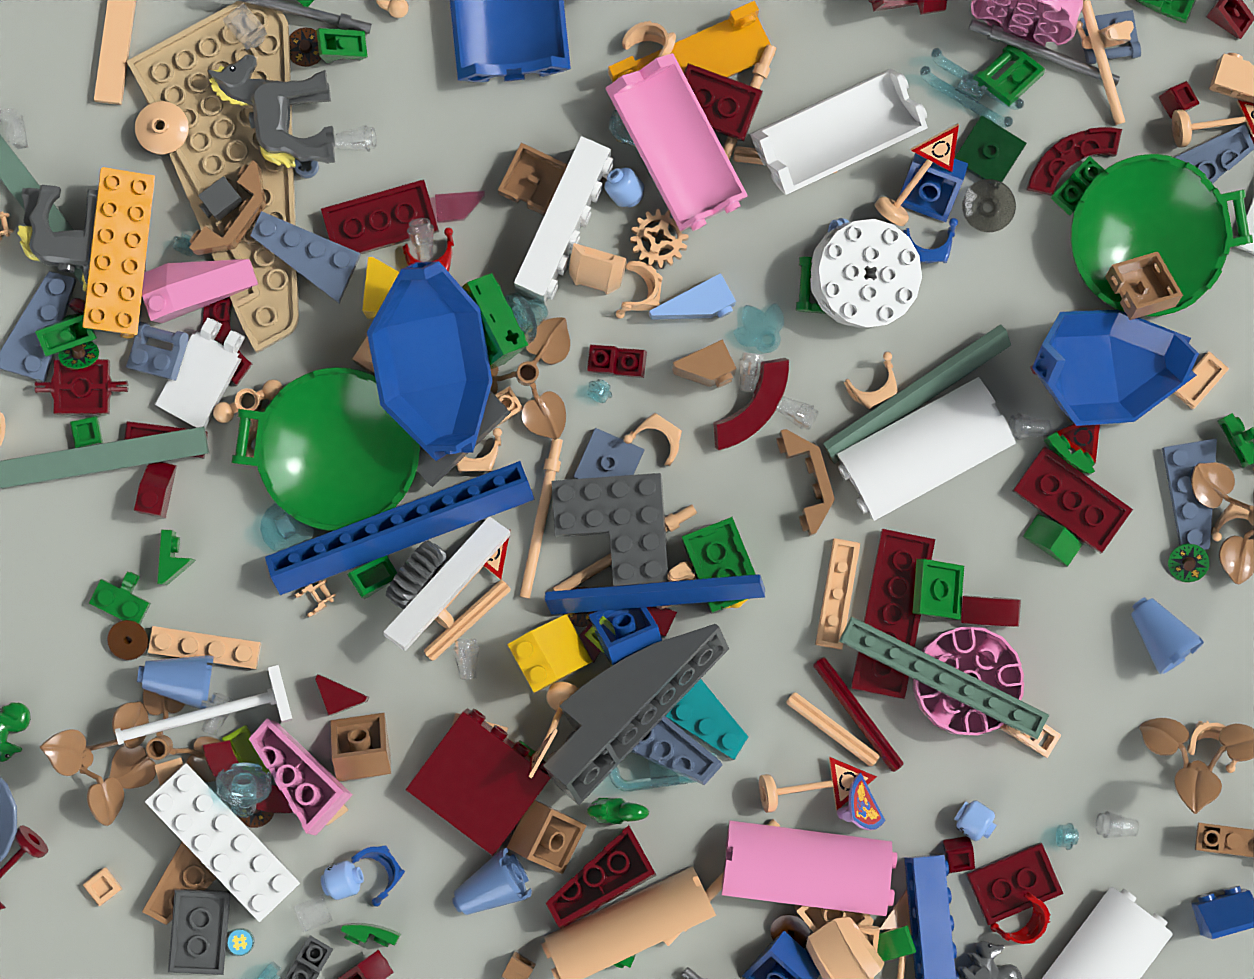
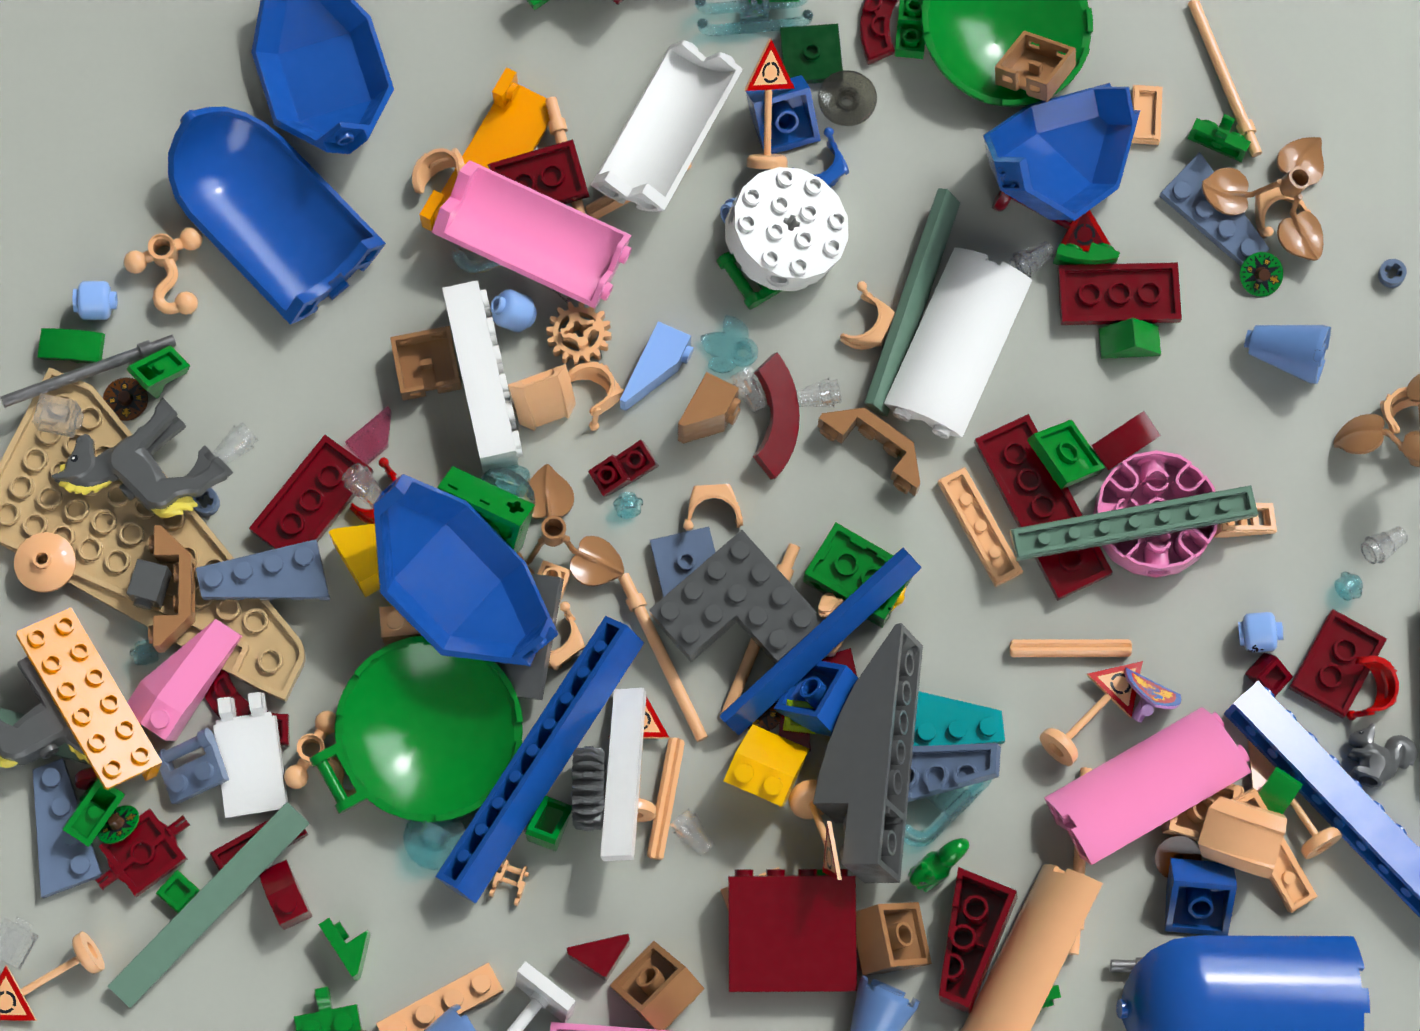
camera: 35 degrees left, 10 degrees down
(858, 714) = (1082, 618): dark red axle -> none

